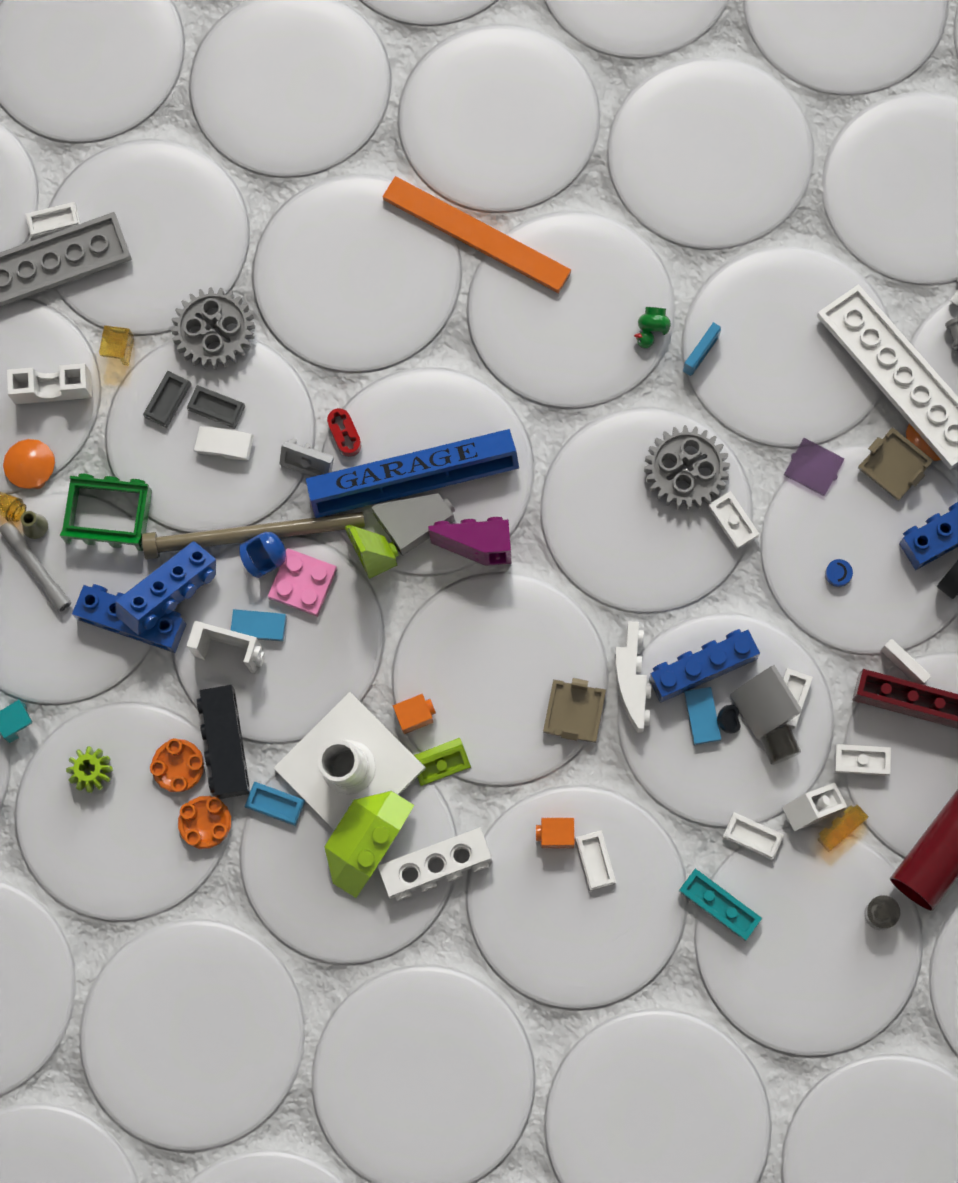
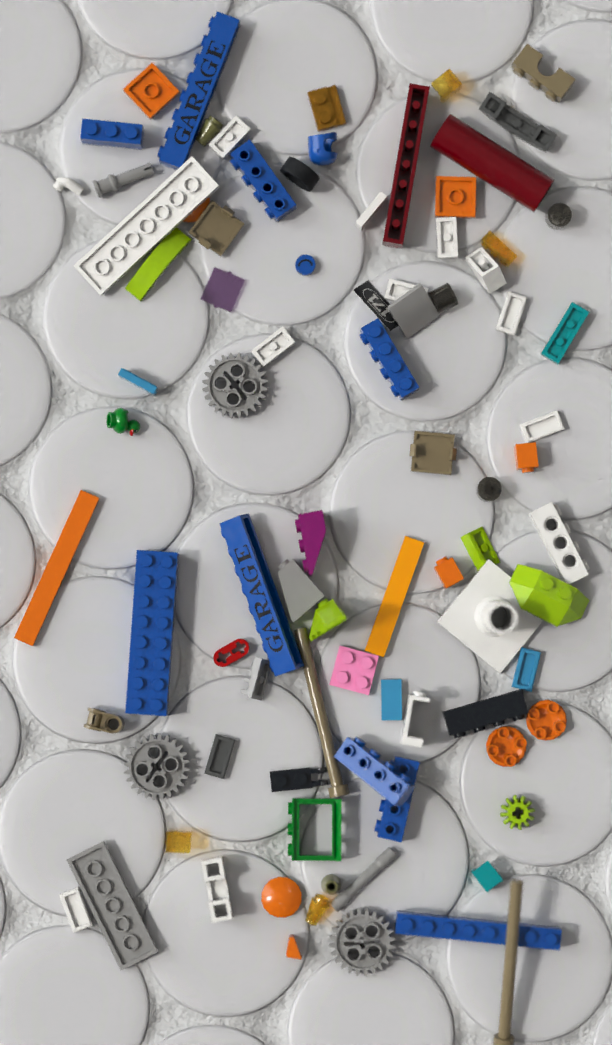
camera: 100 degrees left, 10 degrees up
(167, 399) = (217, 796): dark grey tile -> none
(174, 496) = (295, 779): none -> black hinge
(224, 442) = (250, 745): white slope -> none
(266, 553) = (337, 699): blue helmet -> none
(278, 267) = (101, 721): none -> dark tan piece
(380, 336) = (152, 633): none -> blue brick
(391, 642) = (394, 596): none -> light orange tile
(517, 778) = (488, 489): none -> clear smoke piece
(632, 687) = (411, 411): white slope -> none
(702, 715) = (425, 357): dark azure tile -> none
(728, 719) = (426, 338): black piece -> none
(783, 653) = (376, 303): none -> black sticker
(856, 388) = (157, 263): none -> lime slope
(917, 777) = (455, 197): none -> orange plate

